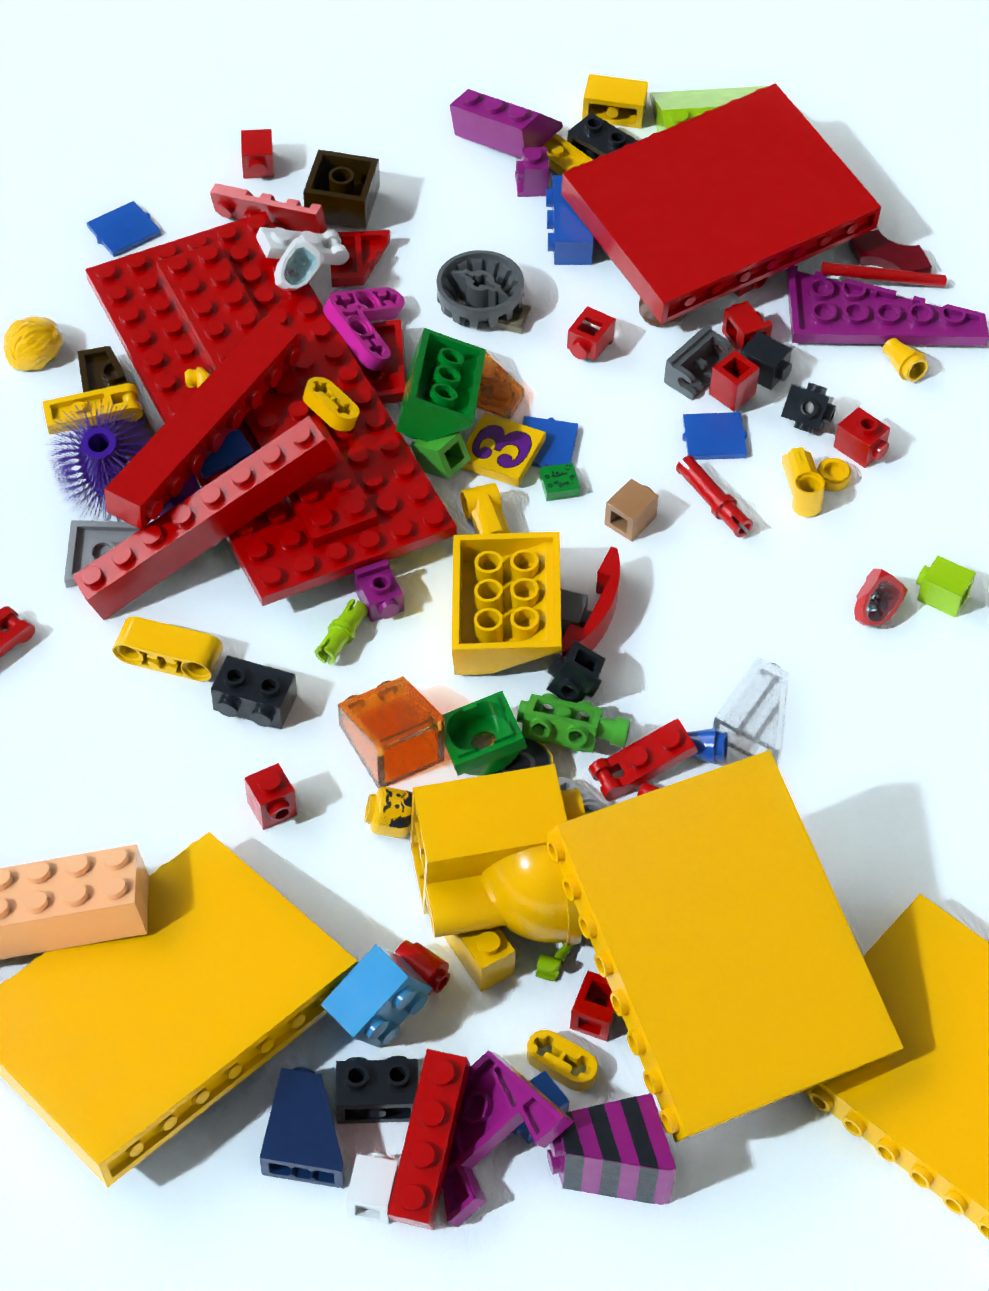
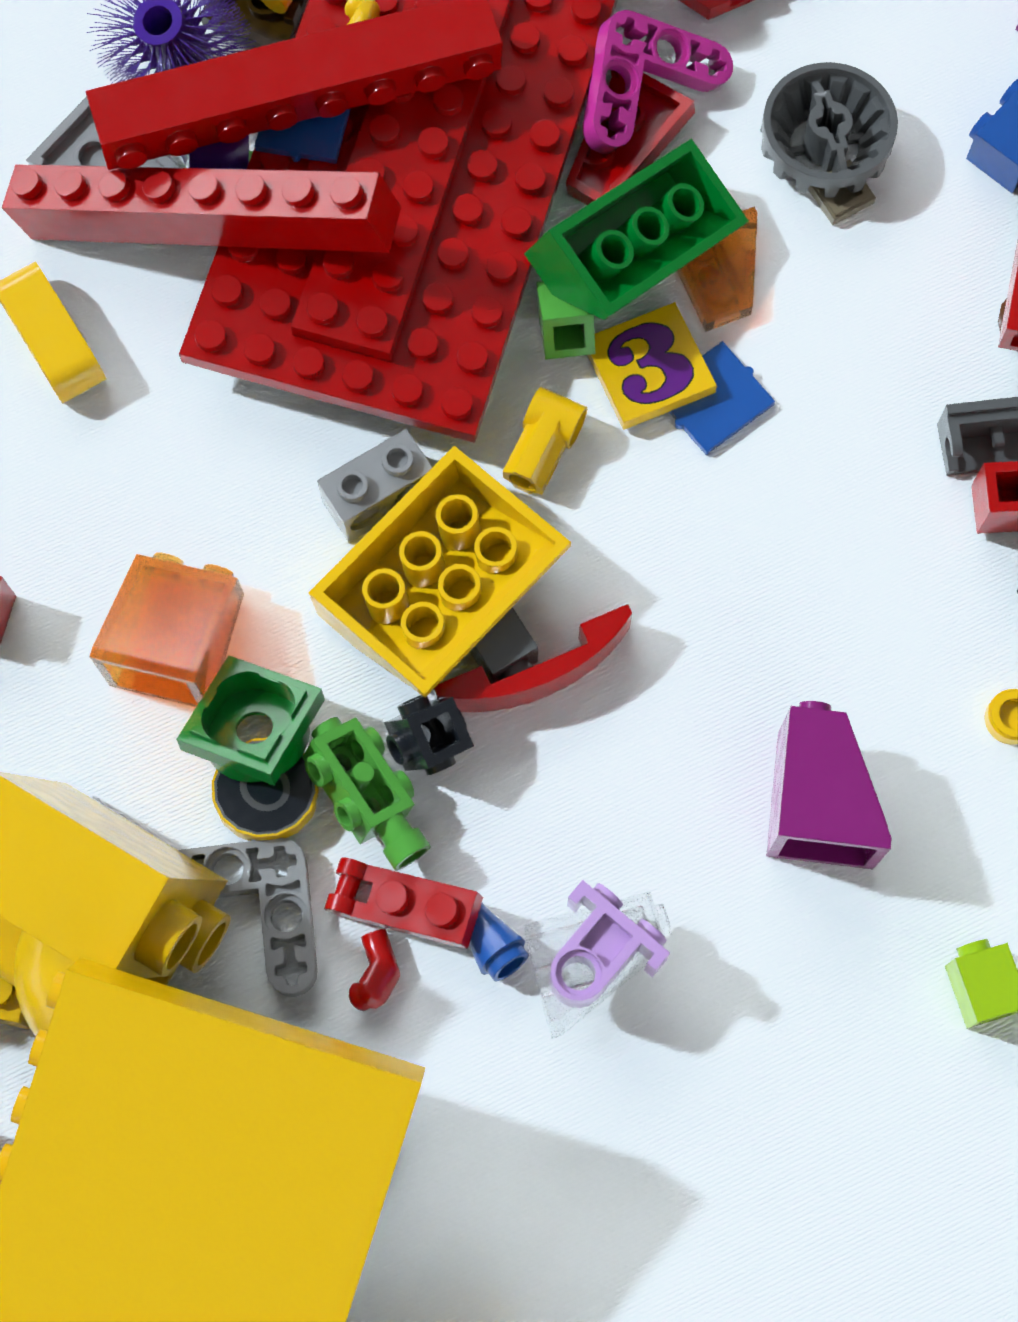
camera: 45 degrees right, 20 degrees up
(254, 692) = (81, 461): black brick -> none
(330, 404) = (461, 163): yellow beam -> none
(341, 631) = (246, 460): lime pin -> none
(379, 590) = (335, 424): magenta brick -> none
(389, 812) = (80, 731): yellow head -> none
(425, 591) = (372, 484): none -> light grey brick
(559, 481) = (675, 461): green tile -> none
(586, 340) = (908, 282): red brick -> none
(631, 509) = (715, 569): medium nougat brick -> none
(714, 435) = (922, 546): blue piece -> none
(721, 505) = (830, 648): red pin -> none
(765, 687) = (604, 944): none -> lavender pin
(790, 556) = (823, 793): none -> magenta slope
(804, 482) = (960, 698): yellow piece -> none
(878, 598) = (884, 933): rock -> none

